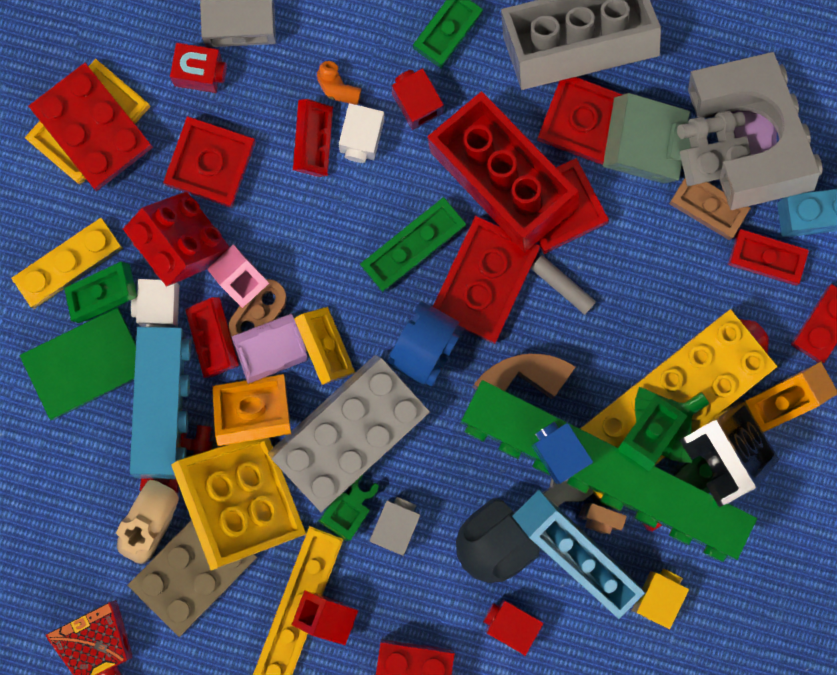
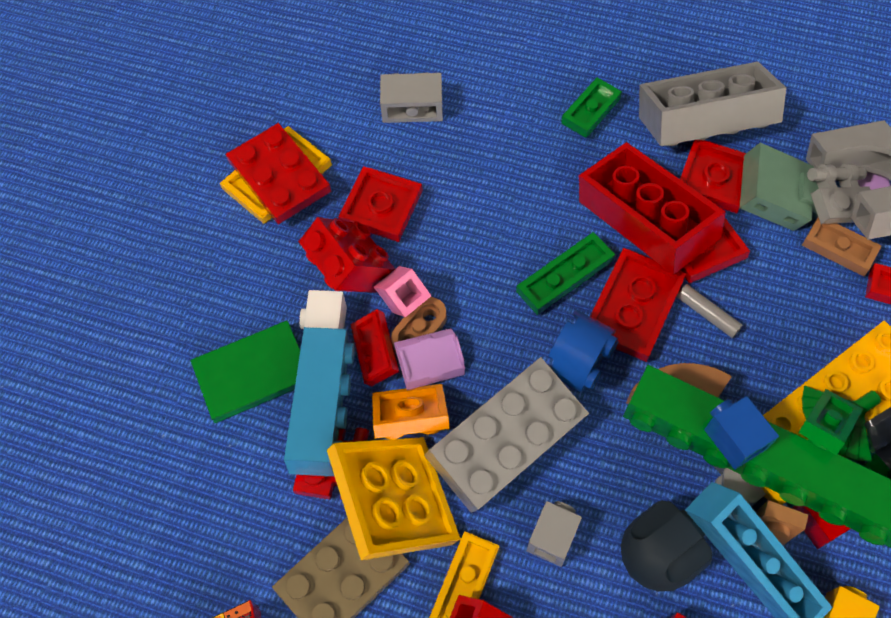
camera: 10 degrees right, 20 degrees down
(67, 263) = (245, 284): yellow plate -> none
(100, 292) = (272, 304): green plate -> none
(146, 522) = (296, 520): tan piece -> none
(197, 68) = (374, 131): red brick -> none
(312, 138) = (473, 185): red plate -> none
(324, 345) = (482, 357): yellow plate -> none
(333, 85) = (493, 150): orange arm -> none
(347, 512) = (503, 516): green plate -> none
(361, 133) = (517, 181): white brick -> none
(417, 98) = (566, 156): red brick -> none

